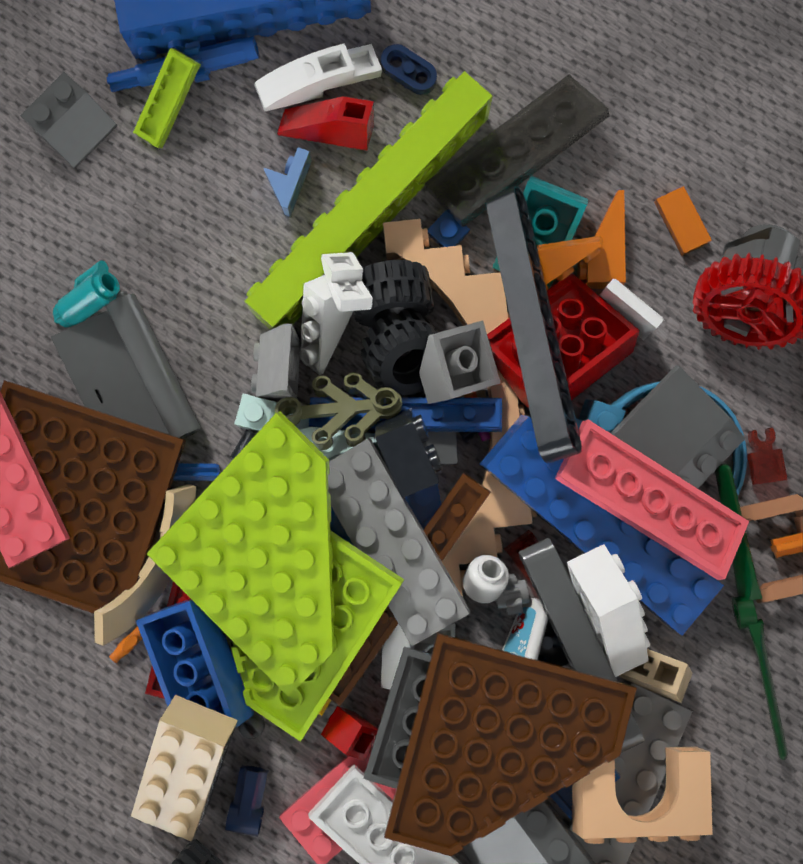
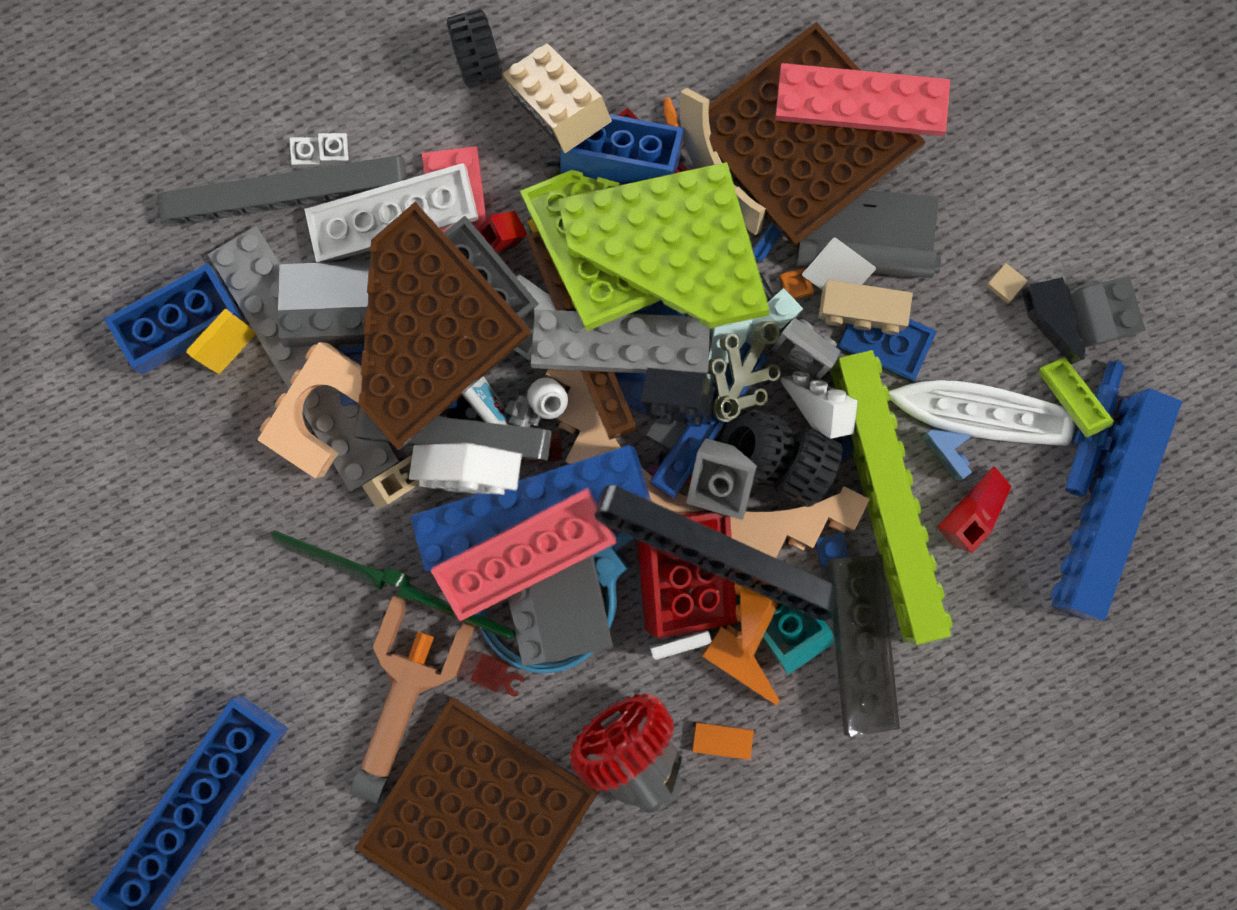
camera: 120 degrees right, 0 degrees up
(90, 294) = (952, 245): teal piece -> none
(95, 225) = (1006, 283): none -> tan tile
(98, 167) = (1051, 312): none -> black slope
(183, 384) = (838, 264): none -> white sticker
(203, 337) = (865, 306): none -> tan brick
(217, 303) = (898, 353): none -> blue tile
(218, 417) = (796, 284): none -> orange tile
(232, 172) = (985, 412): none -> white piece
(247, 808) = (498, 127): dark blue piece -> none
(316, 72) = (1024, 527): white slope -> none
(345, 281) = (838, 432): white slope -> none
(410, 69) = (982, 605): dark blue plate -> none

